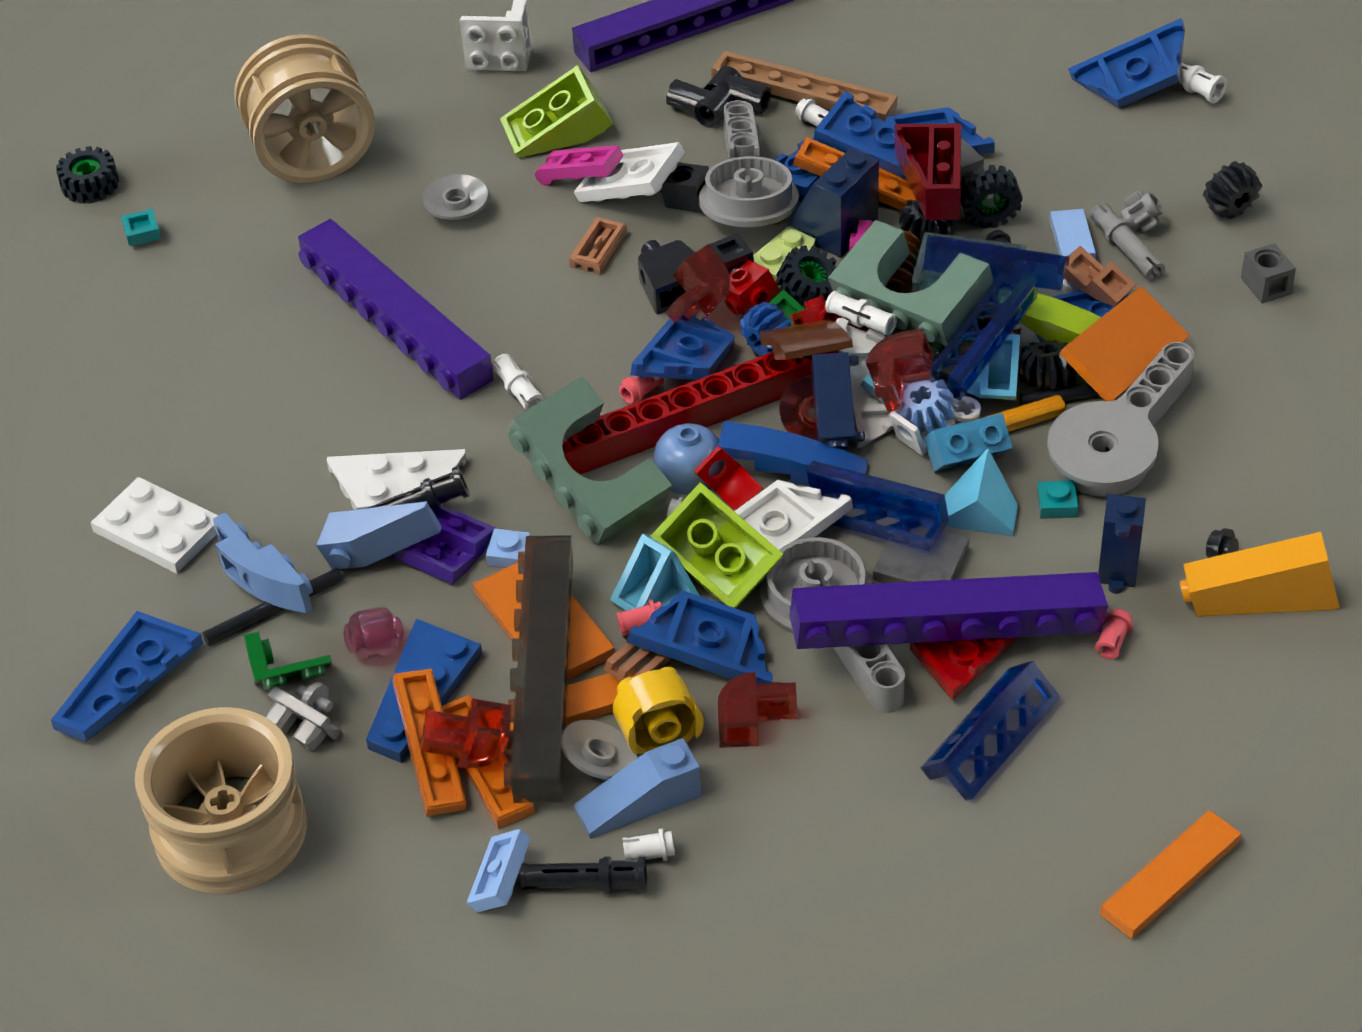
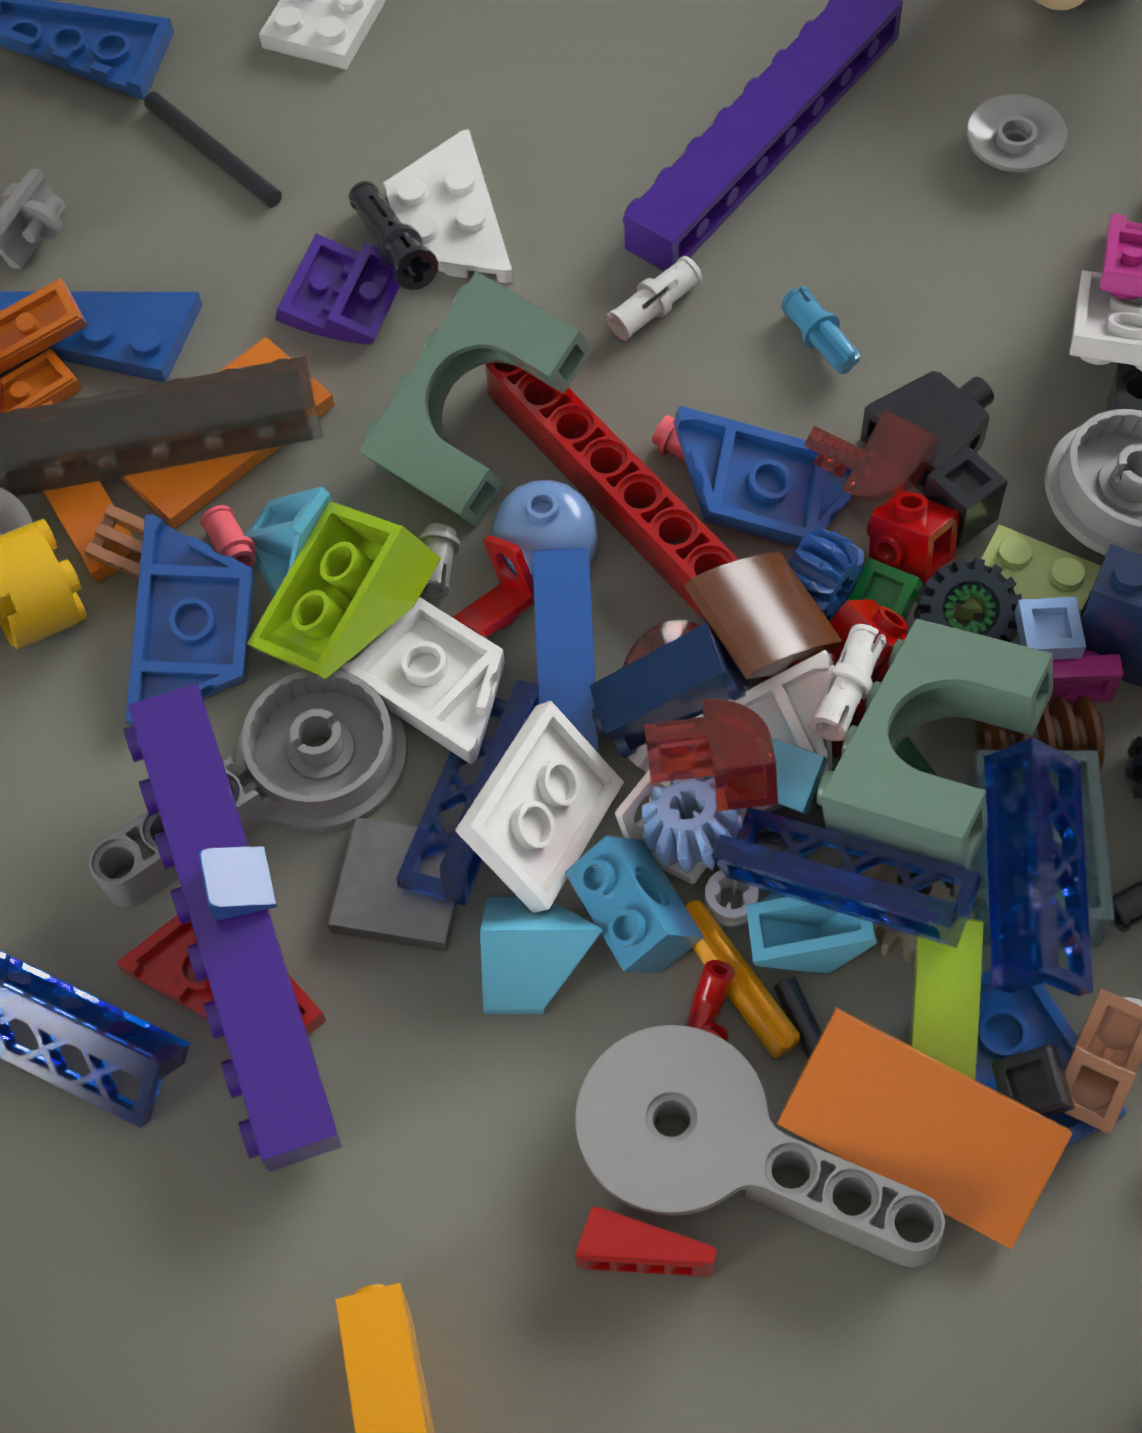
camera: 80 degrees right, 15 degrees up
(259, 569) = (242, 102): medium blue slope -> none
(261, 655) = (72, 156): green bracket -> none
(372, 534) = (313, 198): medium blue slope -> none
(373, 633) = (160, 251): clear pink head -> none
(505, 547) = (344, 363): light blue plate -> none
(575, 310) = (820, 329): none -> dark azure axle
(603, 247) = (983, 337): nougat tile -> none
(745, 703) = (67, 691): clear red brick -> none
(839, 238) = (1051, 626): none -> light blue tile
(896, 466) = (540, 807): none -> white plate
(937, 585) = (236, 881): none -> slope
(1028, 429) = (710, 997): none -> red arm
(1044, 367) = (860, 992): black gear -> none
(1057, 499) = (561, 1067): teal plate -> none
(1105, 297) = (1035, 1080): none -> black tile
(1116, 626) = (272, 1192): coral pin -> none
(1121, 541) = (418, 1166): dark blue brick -> none
(1167, 478) = (631, 1246): none -> red slope
(1221, 543) = (485, 1354): black plate -> none

